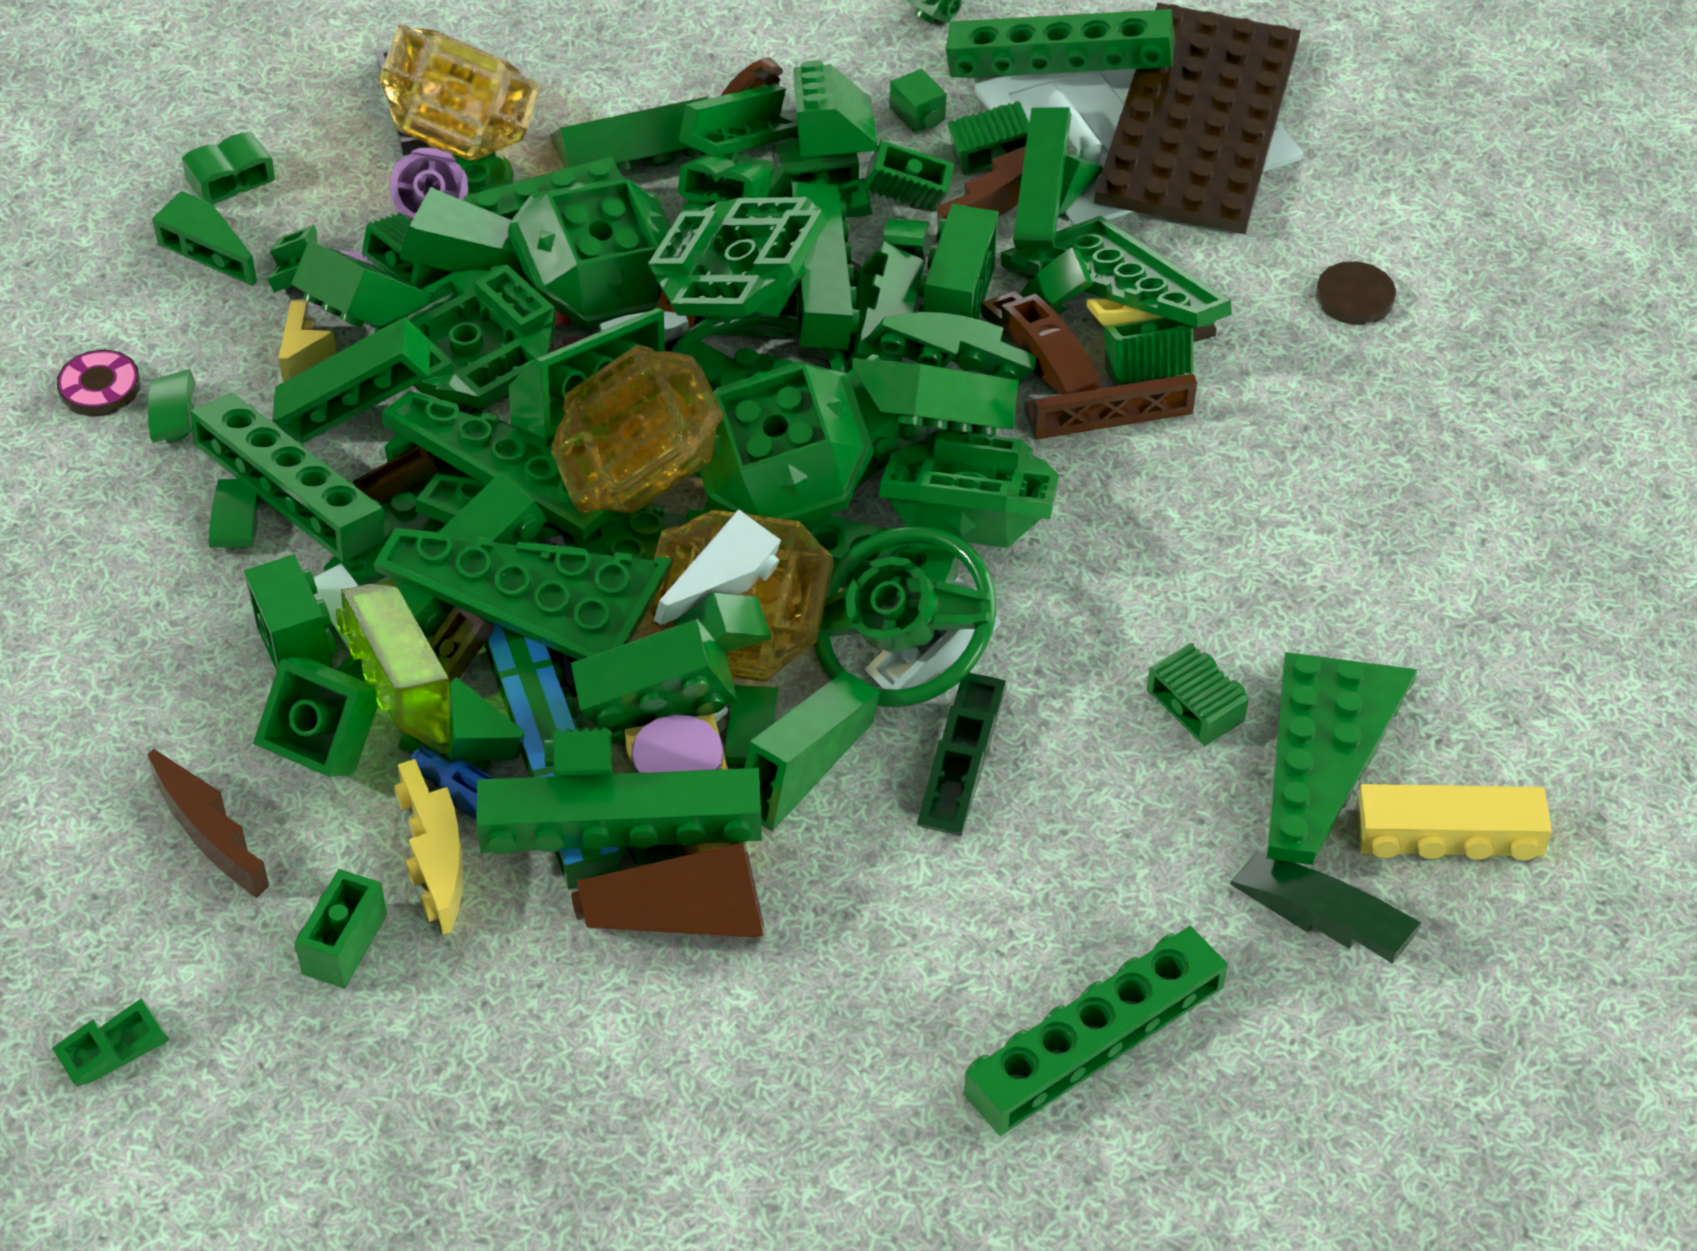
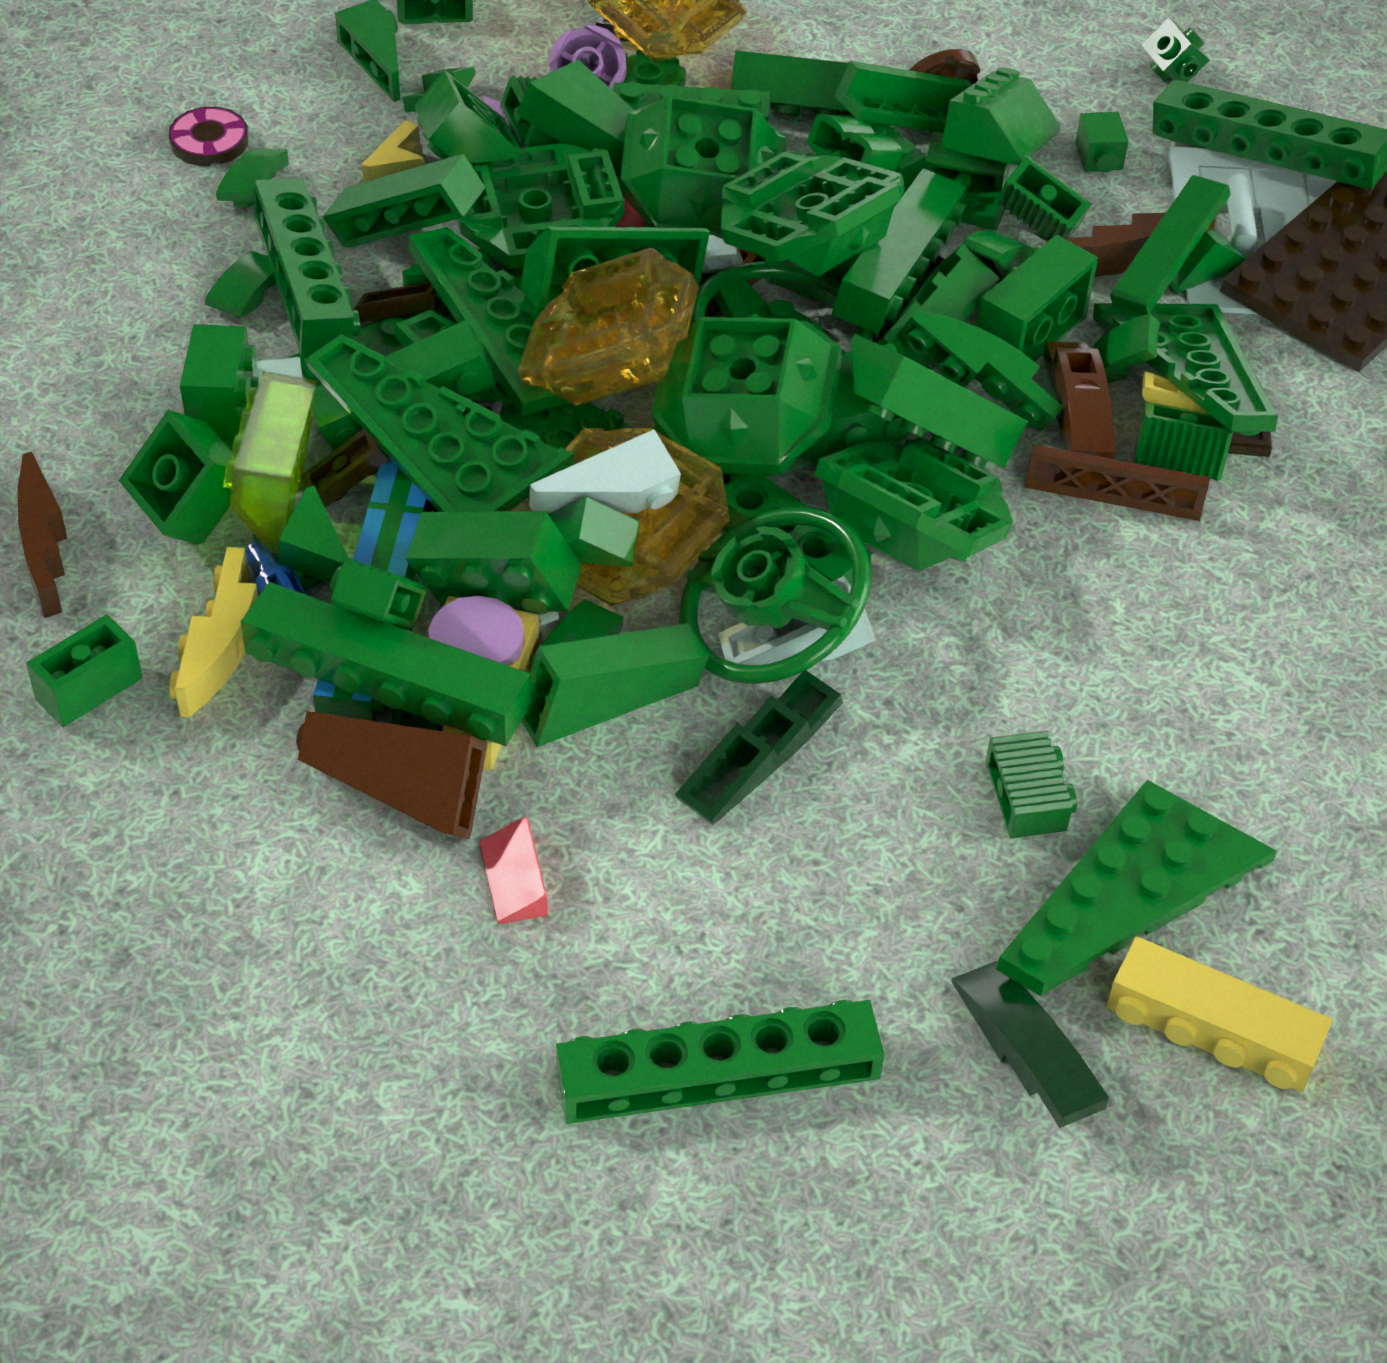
camera: 25 degrees right, 0 degrees up
(828, 946) = (514, 873): none -> slope
(988, 136) = (1143, 191): green brick -> none

